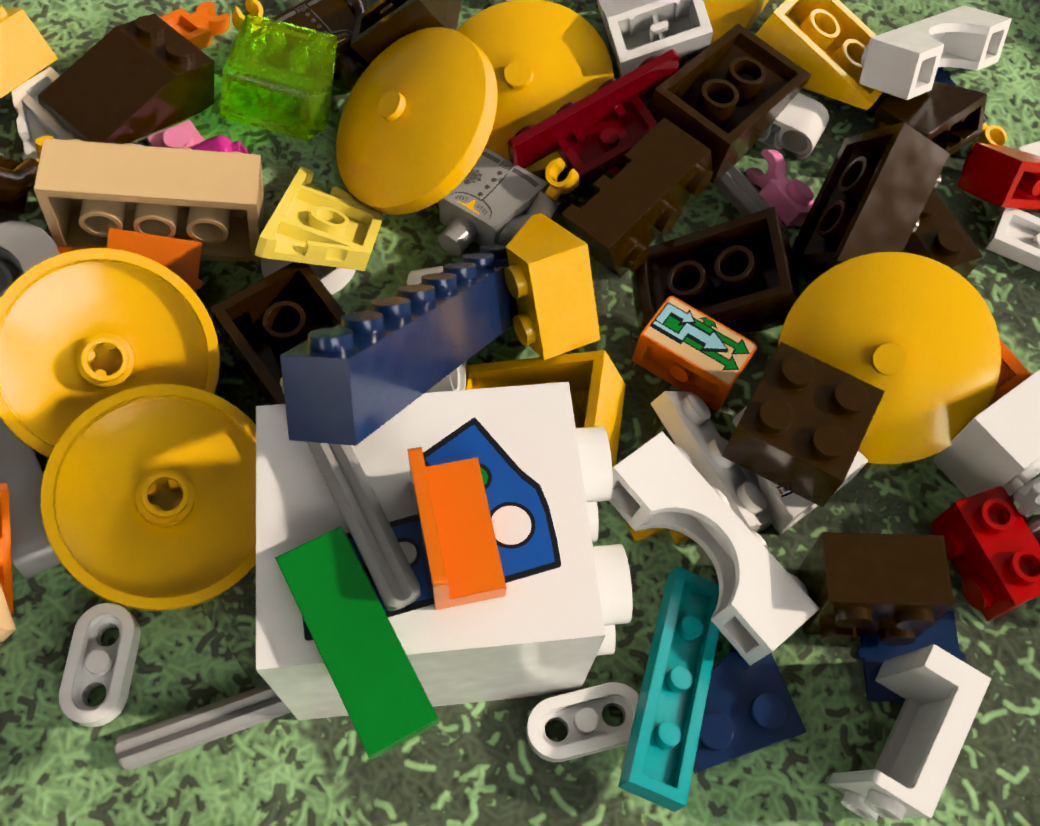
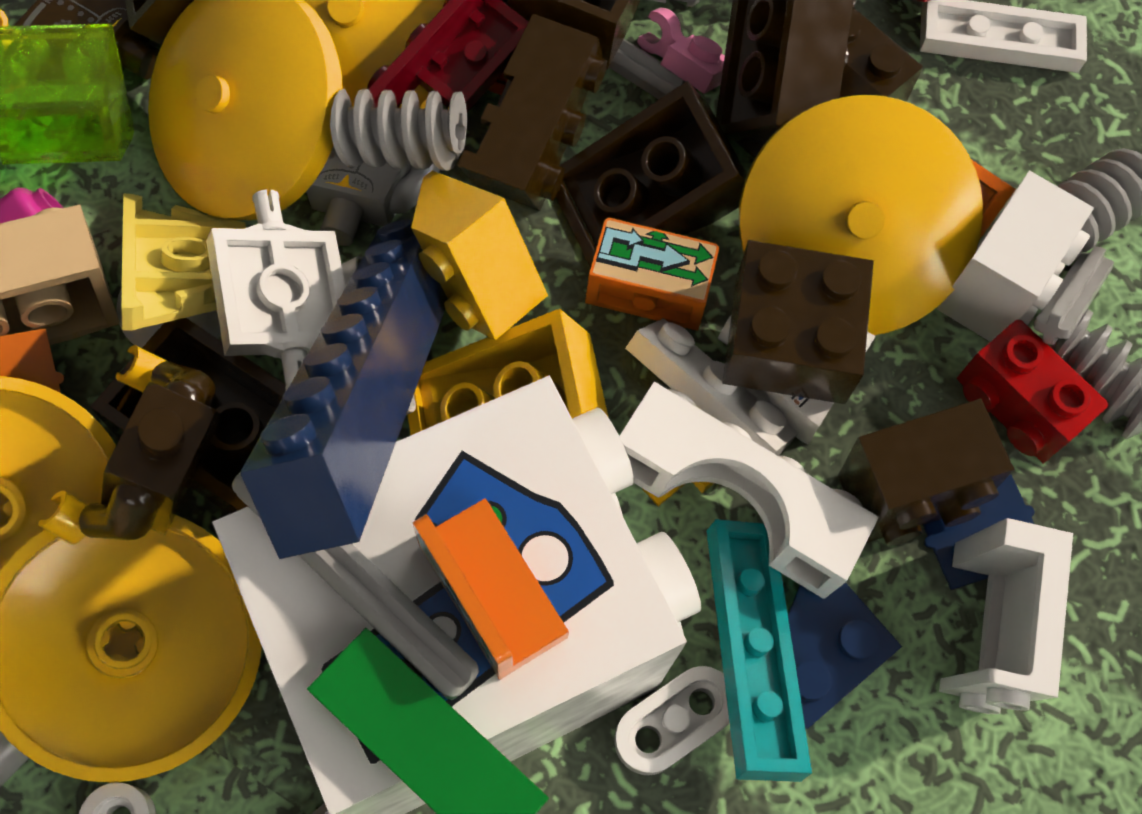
camera: 20 degrees left, 5 degrees up
(235, 356) = (152, 458): none -> dark brown torso
(381, 252) = (273, 285): none -> white plate
(525, 176) = (398, 134): none -> light grey piece

